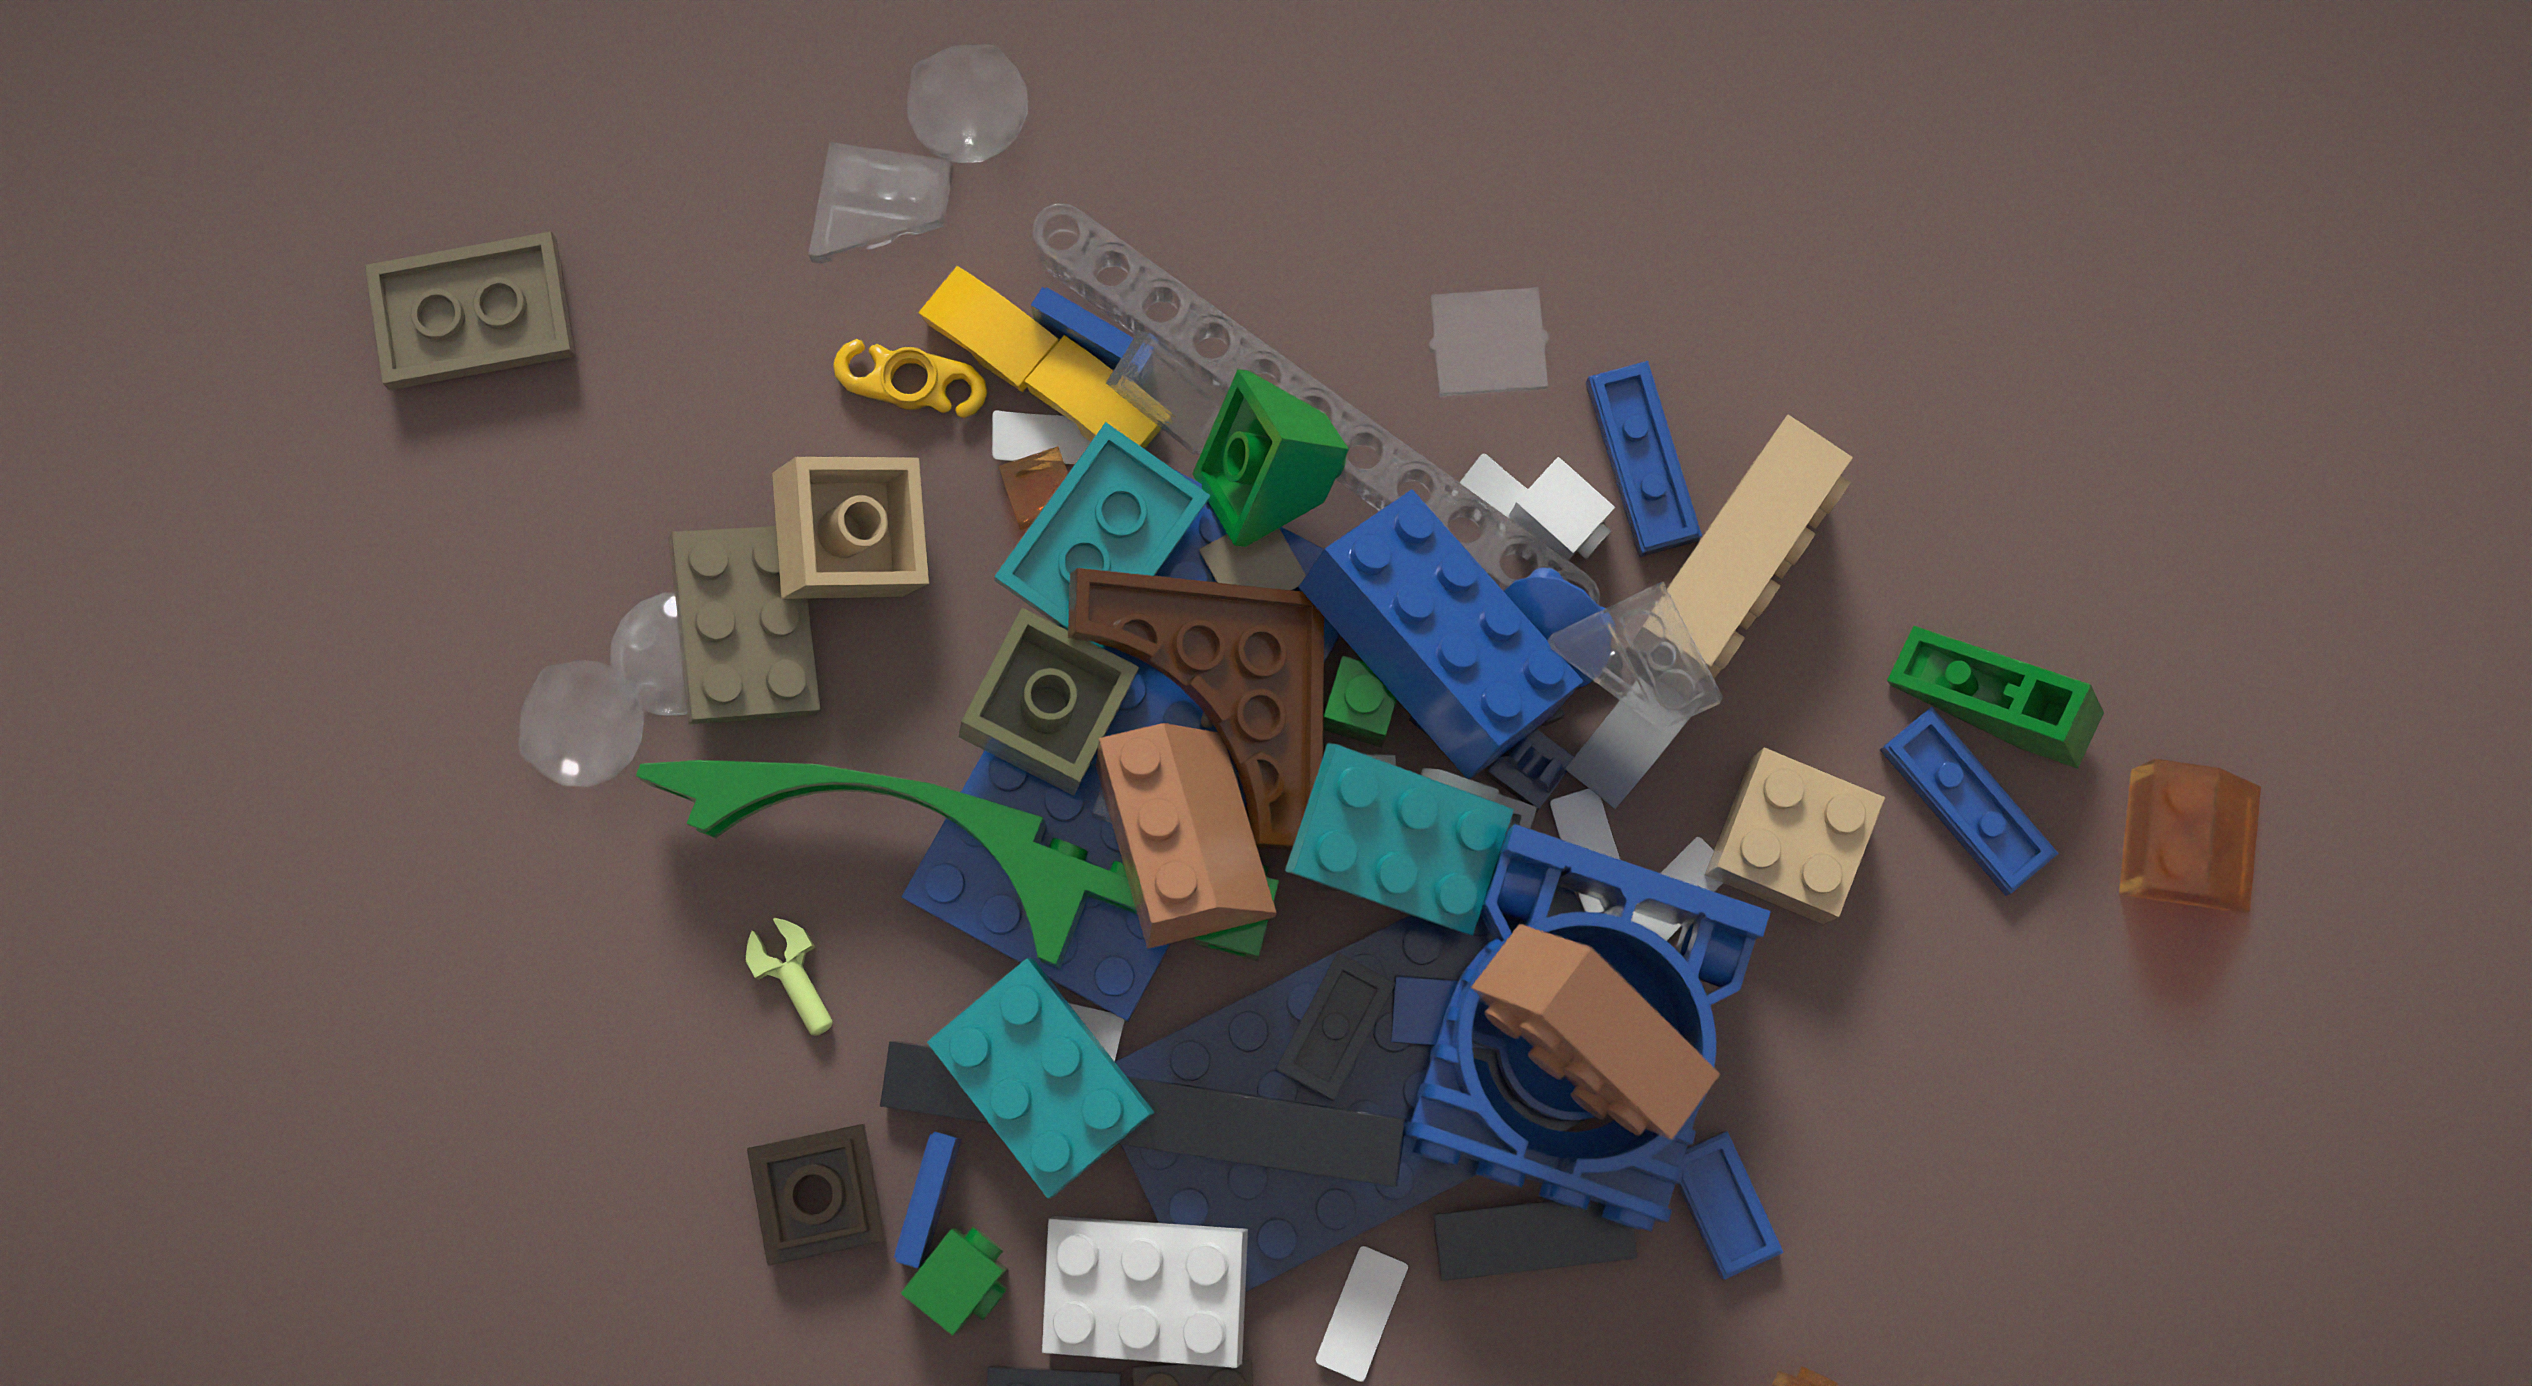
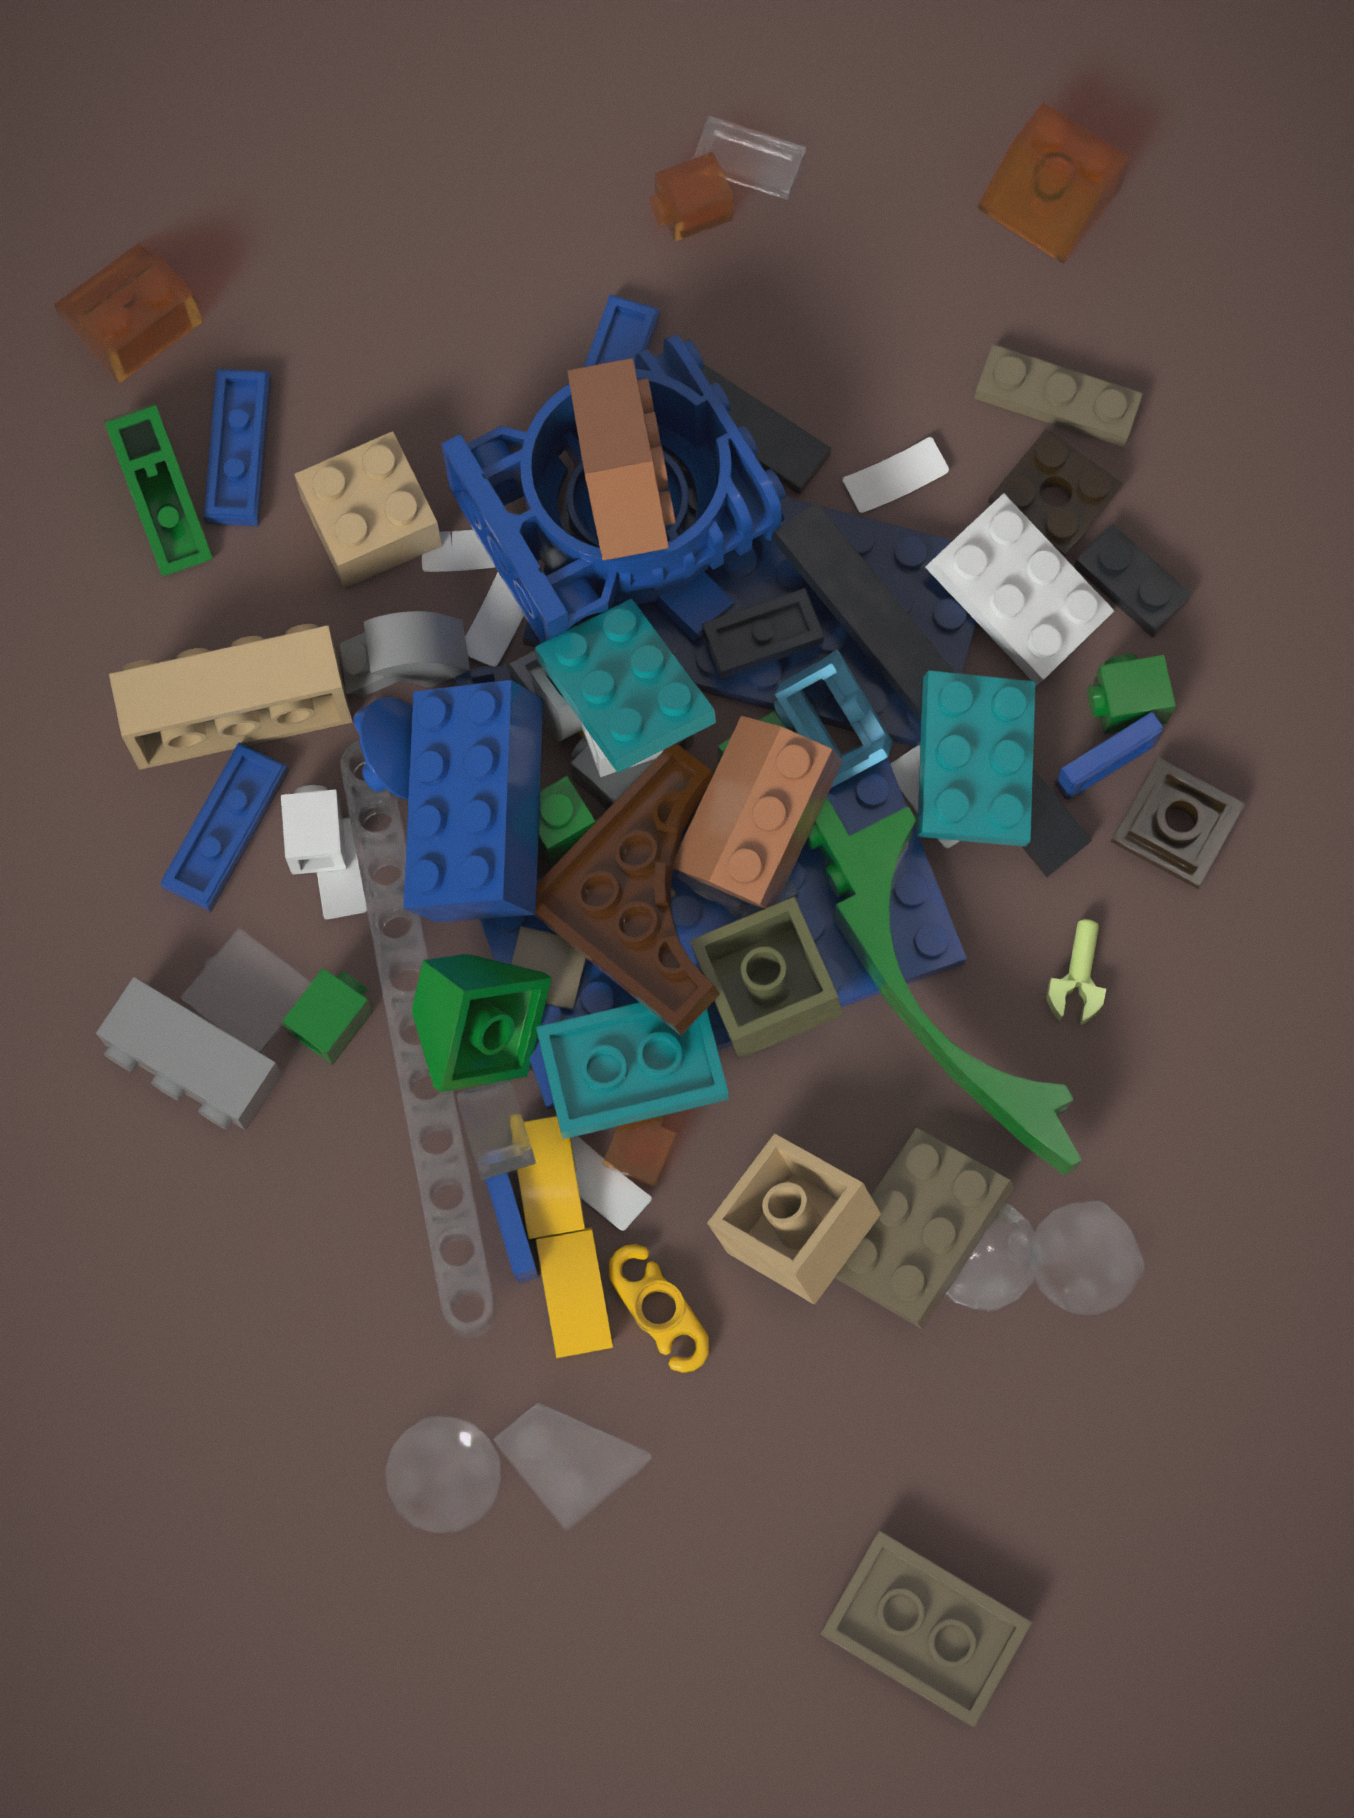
camera: 135 degrees left, 5 degrees down
(1205, 977) = (798, 713): none -> medium azure window
(1400, 372) = (329, 1014): none -> green brick
(1483, 240) = (187, 1055): none -> light grey brick
(1642, 657) = (365, 668): clear wing -> none

